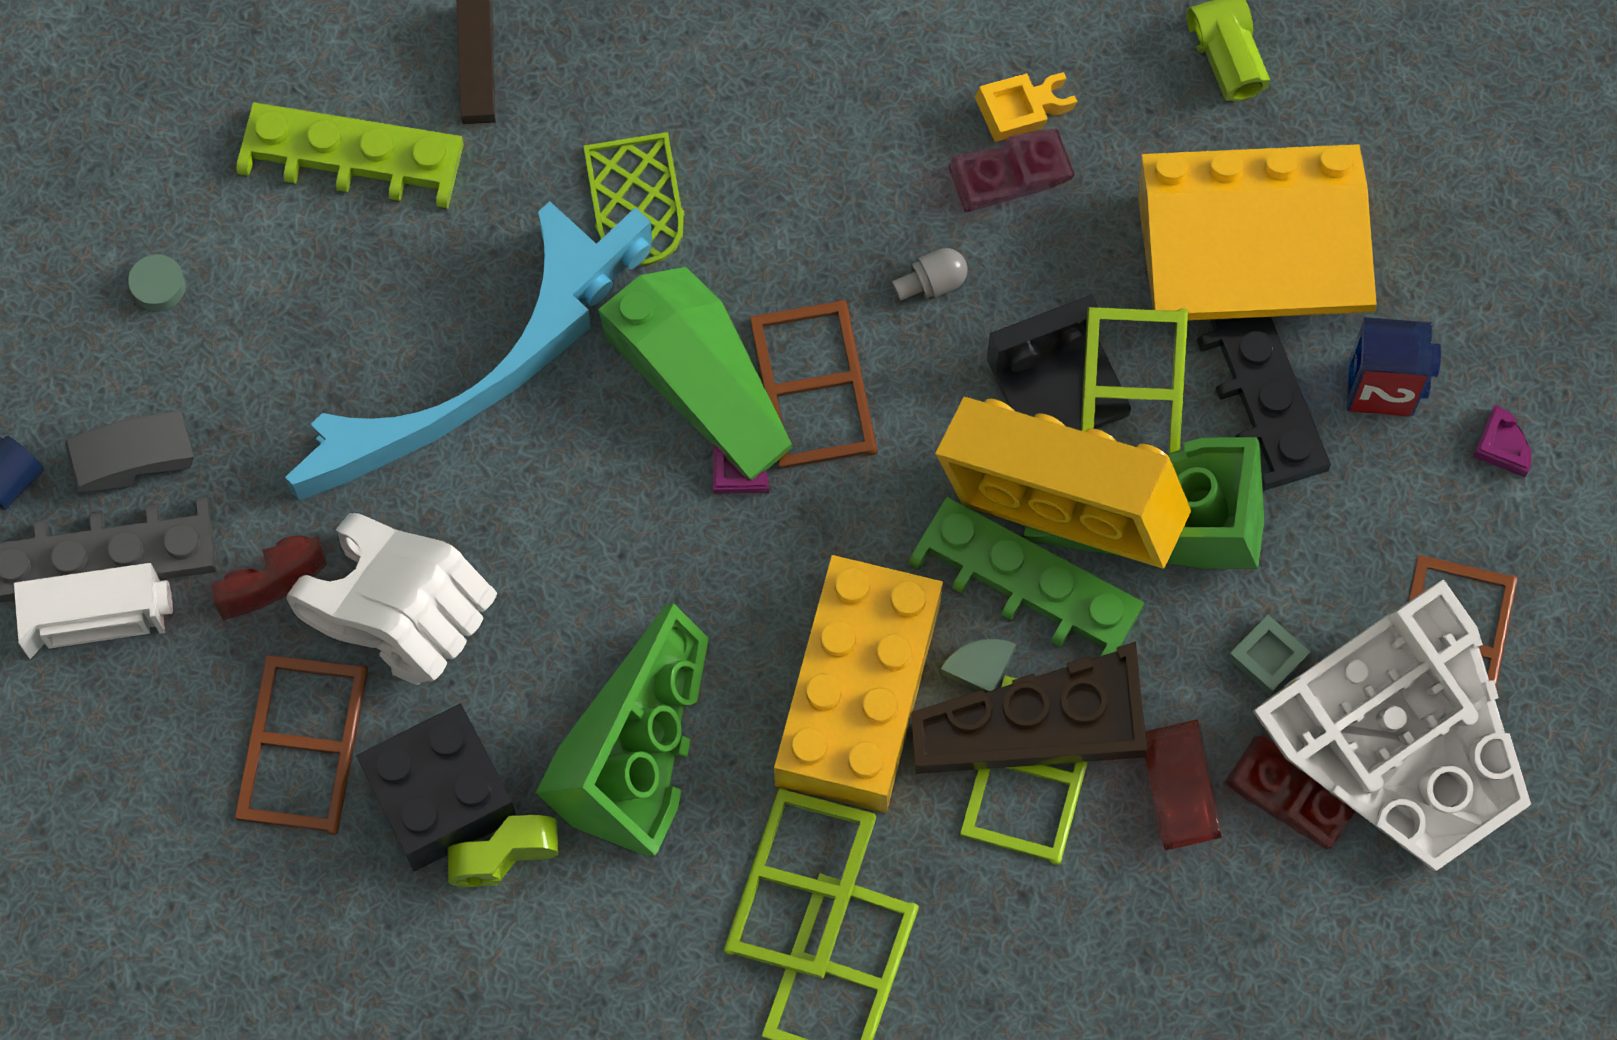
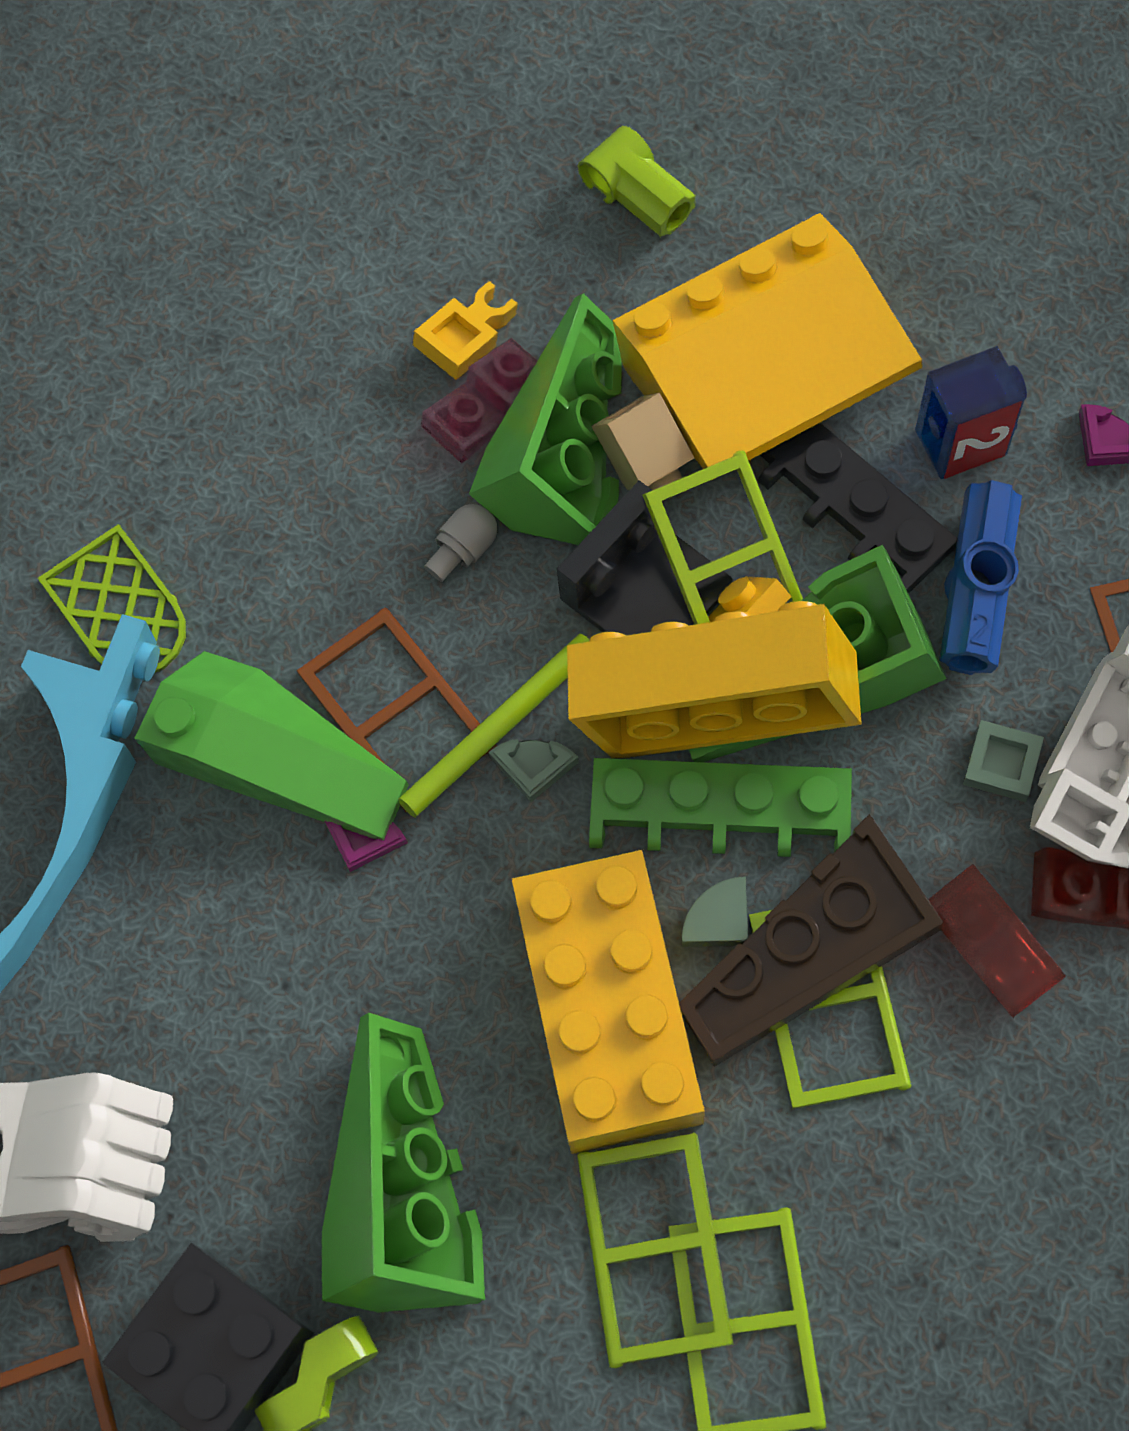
camera: 20 degrees left, 0 degrees up
(869, 439) = (488, 733): none -> lime bar
(897, 479) = (533, 764): none -> sand green tile
(1041, 235) = (545, 460): none -> bright green wedge
(1116, 266) = (644, 443): none -> tan brick
(1136, 429) = (751, 596): none -> yellow plate
(1310, 525) = (975, 609): none -> blue piece

